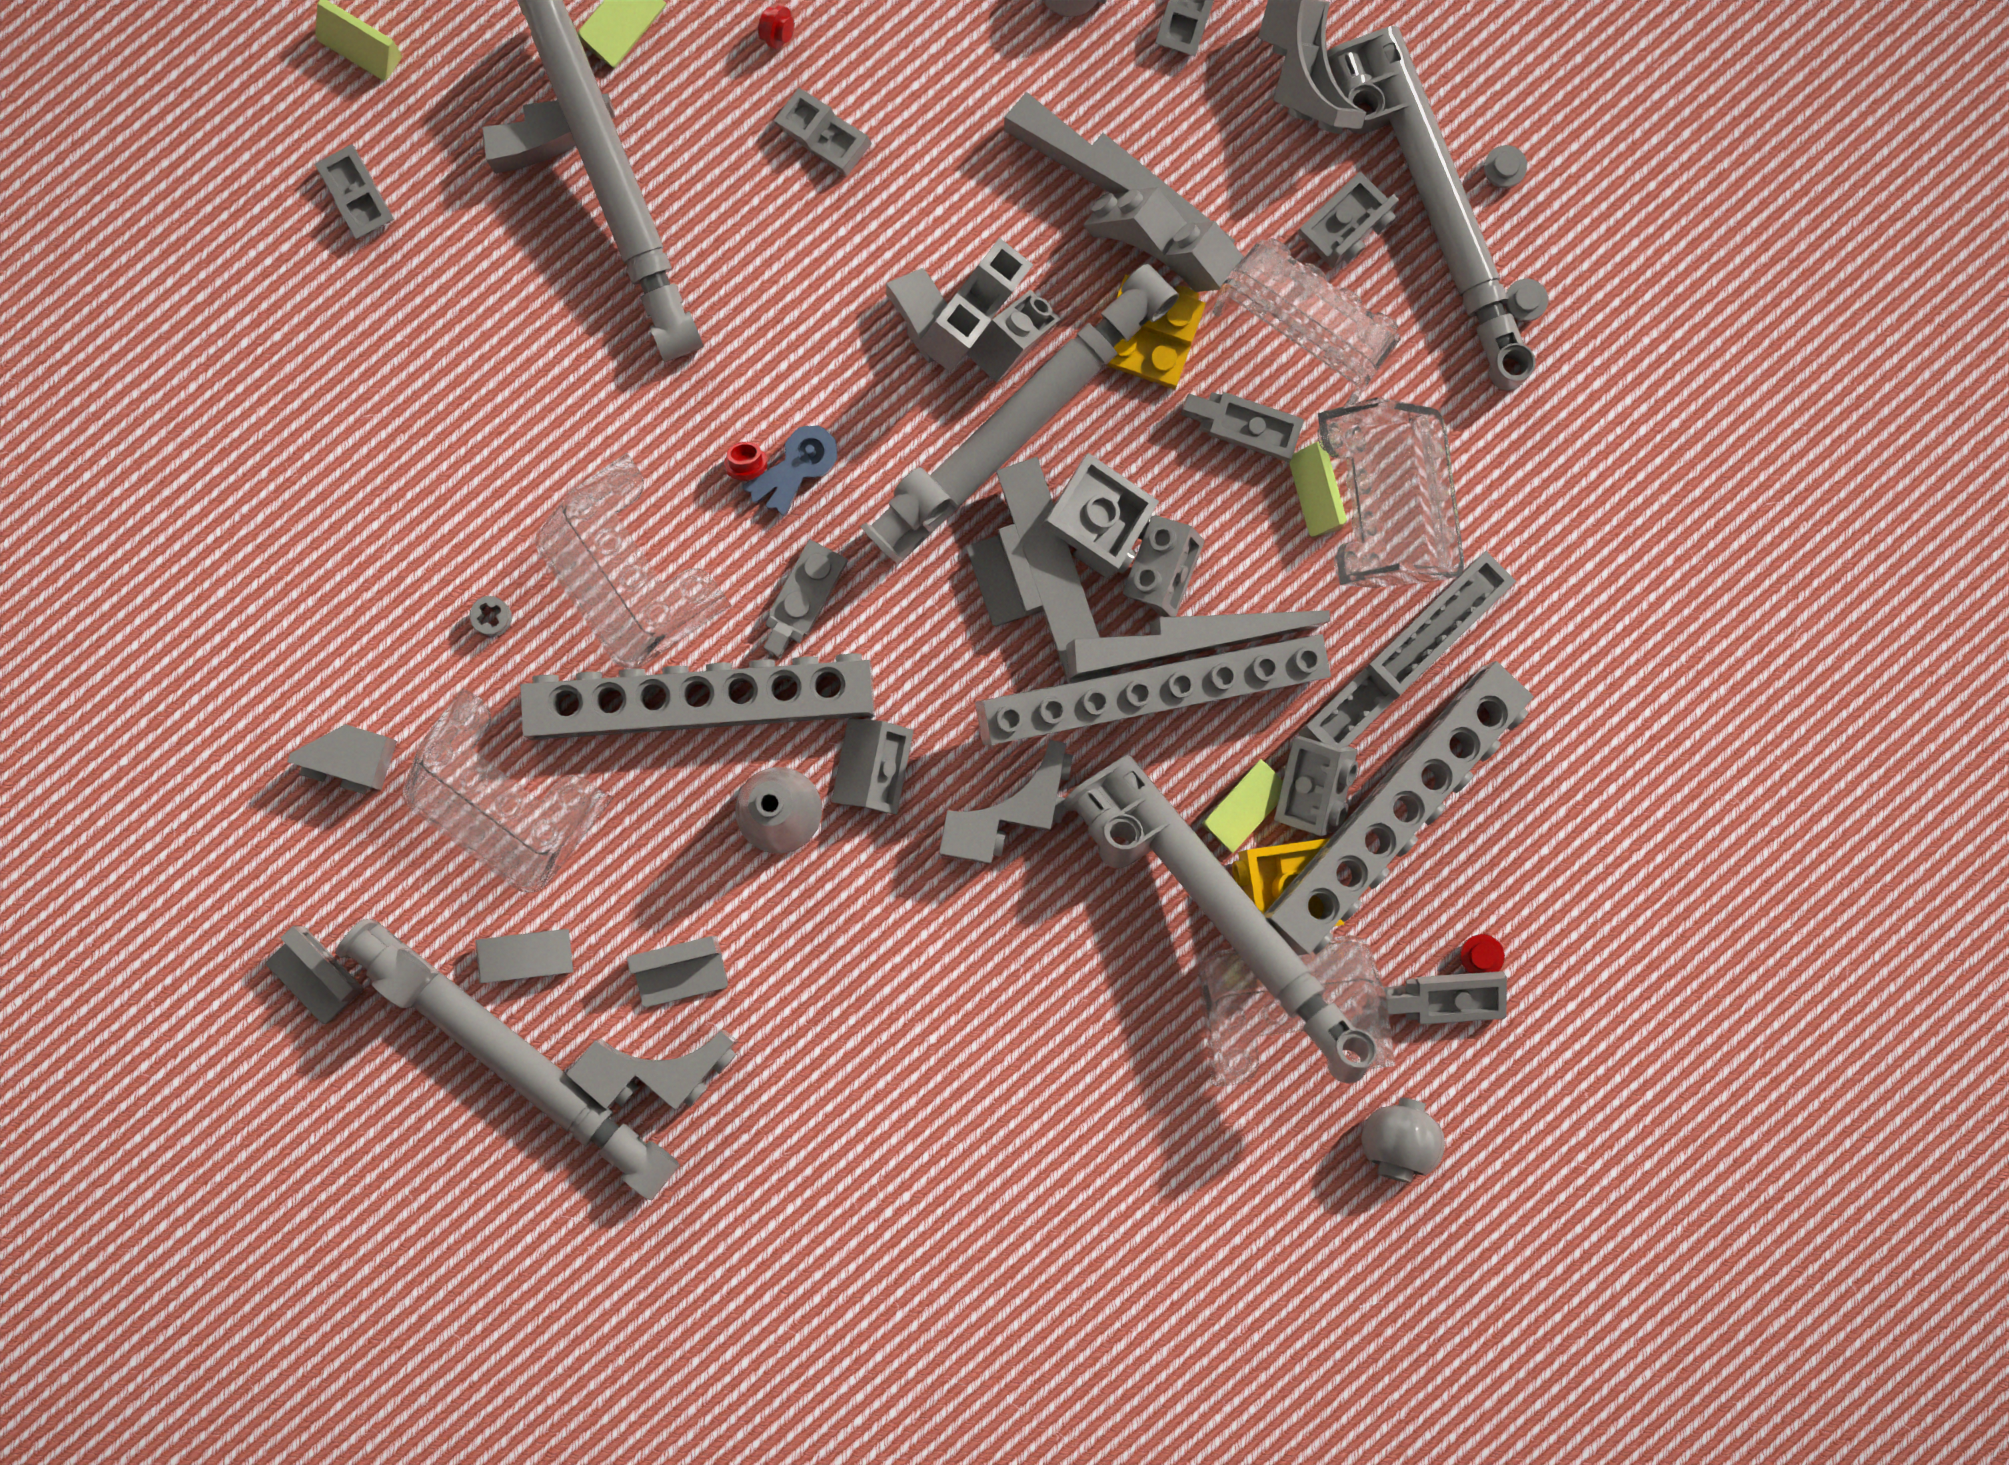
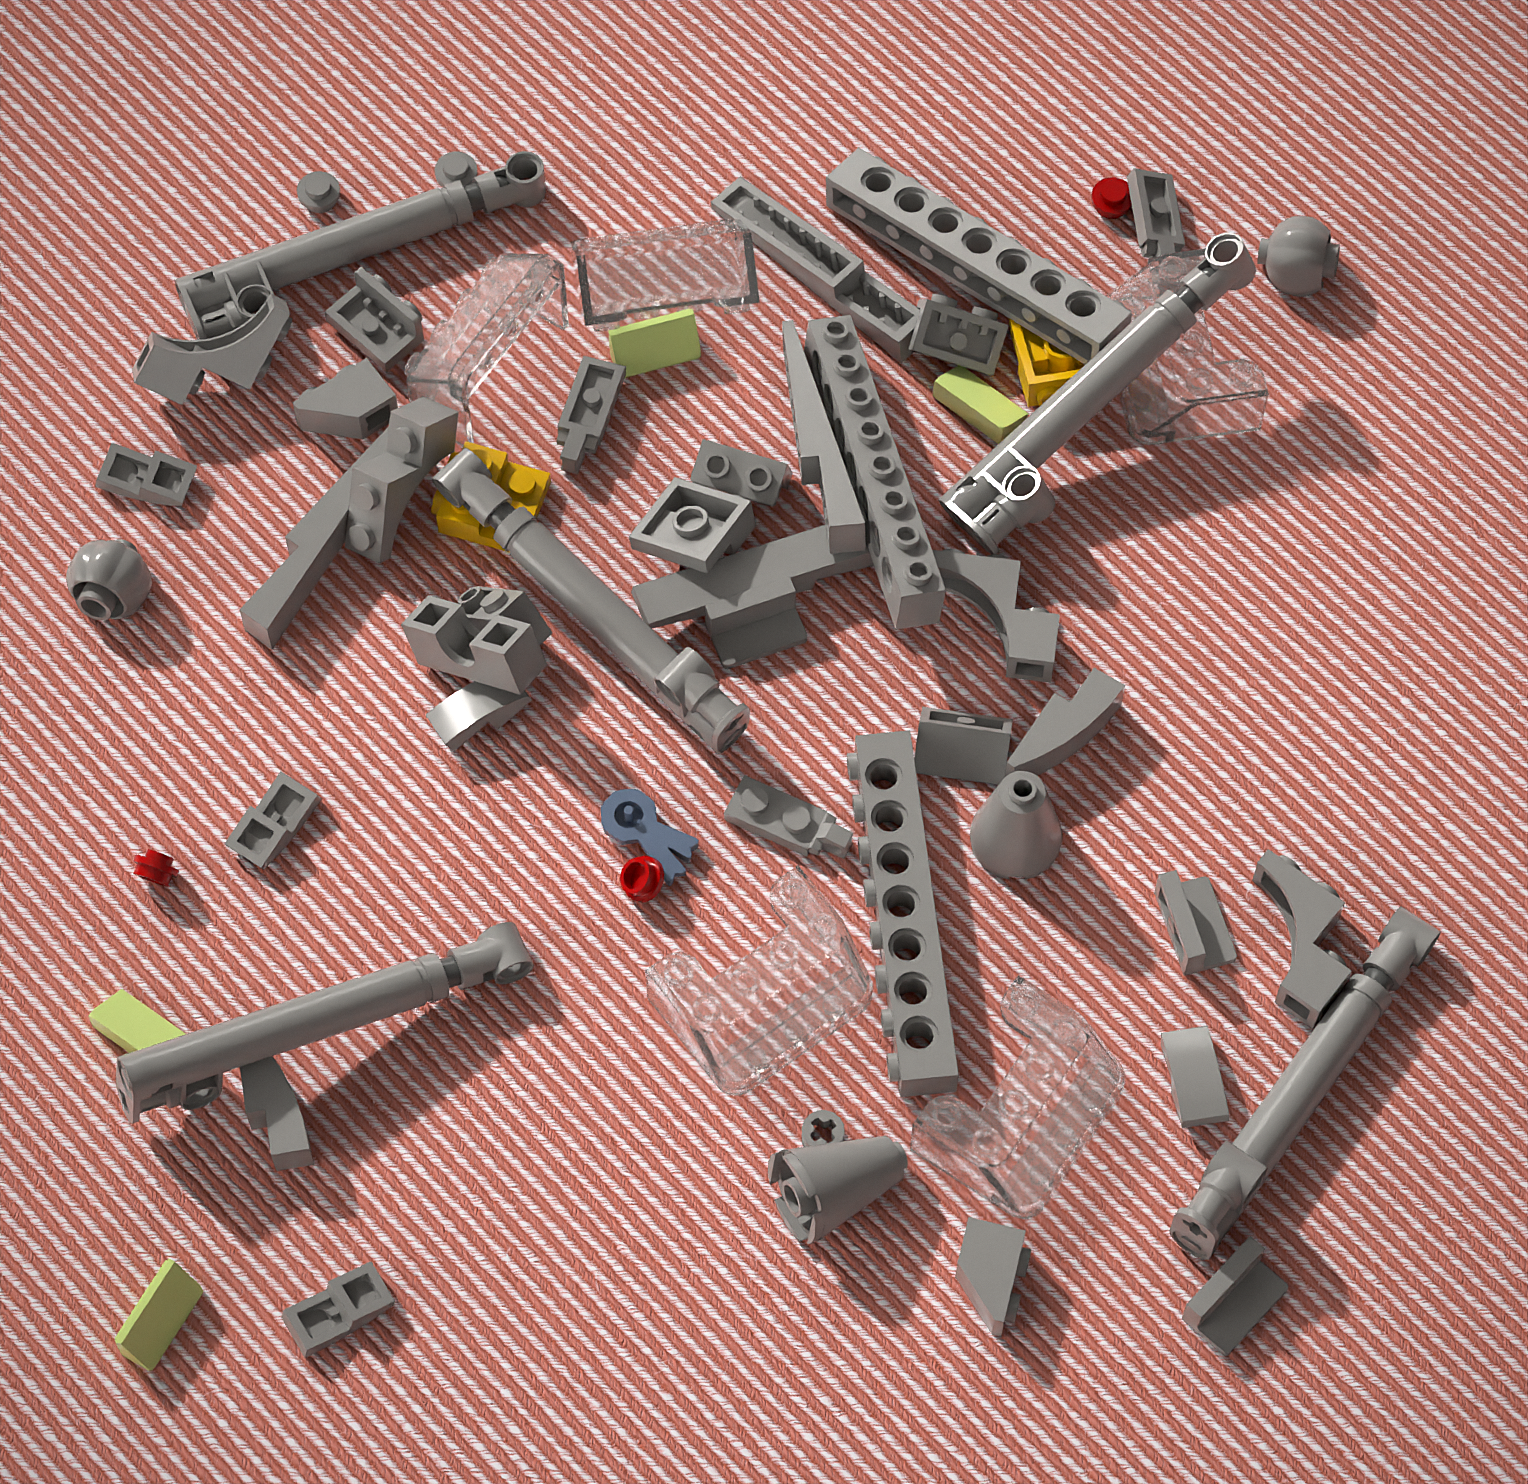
camera: 90 degrees left, 20 degrees down
(434, 624) = (833, 1182): none -> light grey cone
(880, 862) = (1067, 725): none -> light grey slope
(1258, 198) = (347, 405): none -> light grey slope

